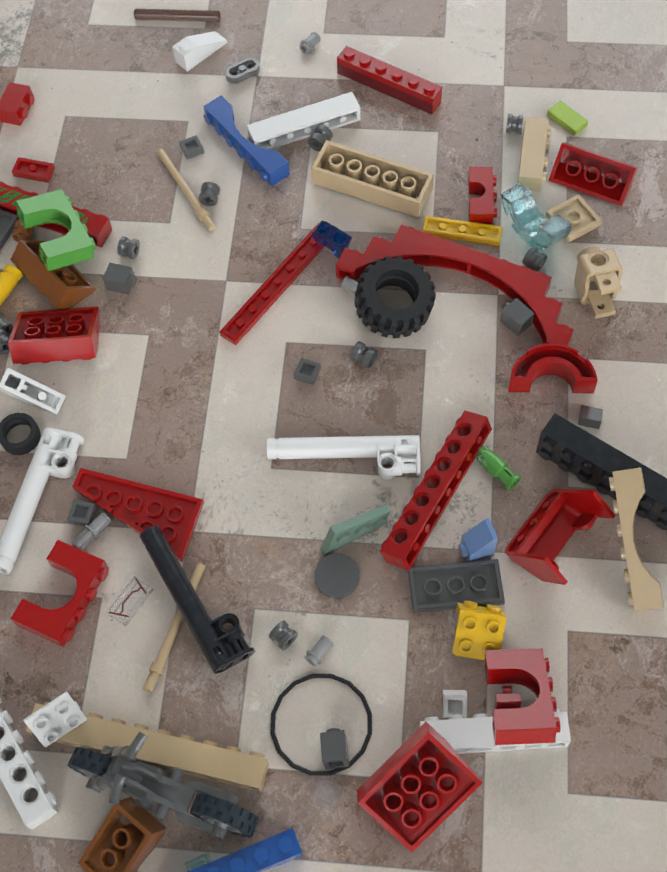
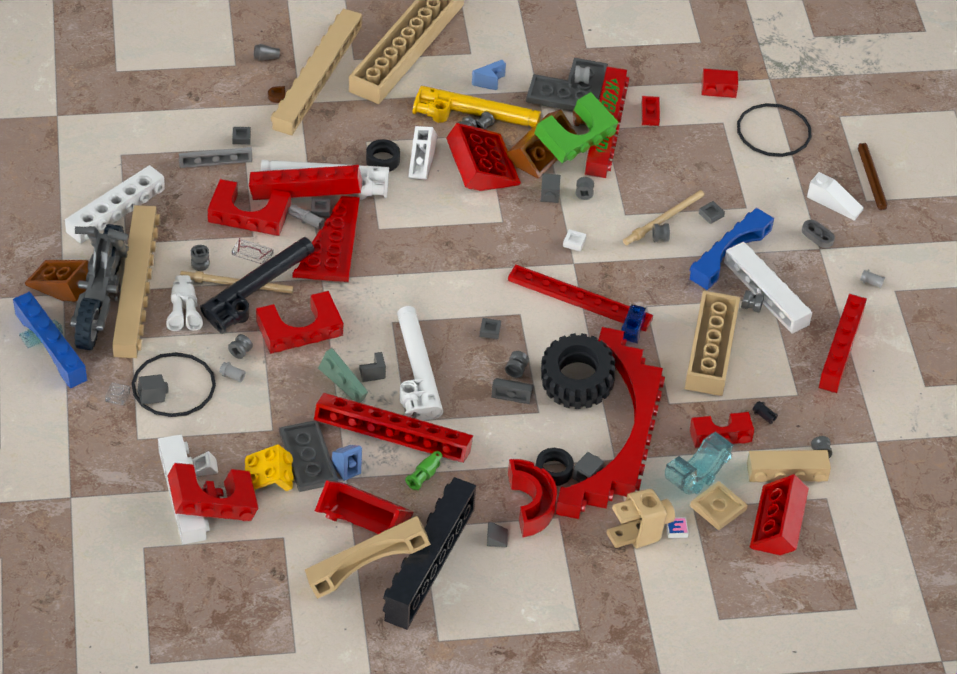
camera: 70 degrees right, 15 degrees down
(47, 519) = (307, 181): none -> red brick
(55, 719) = (142, 212): white hinge -> none
(95, 103) = (768, 153): none -> black piece
(132, 666) = (200, 257): none -> dark grey wheel
(189, 692) = (184, 296): none -> white piece
(199, 271) = (574, 240): none -> white plate
(274, 589) = (282, 337): none -> red arch
(337, 576) = (300, 376): dark grey tile -> none
(341, 496) = (374, 370): none -> dark grey panel
(394, 366) = (512, 391): none -> dark grey panel
(418, 787) = (128, 435): red slope -> none
(458, 160) = (763, 411): none -> black pin
(463, 230) = (679, 424): yellow tile -> none
(506, 332) = (558, 455): none -> black tyre
(534, 259) = (657, 478): dark grey wheel -> none
(567, 117) = (849, 494): lime tile -> none

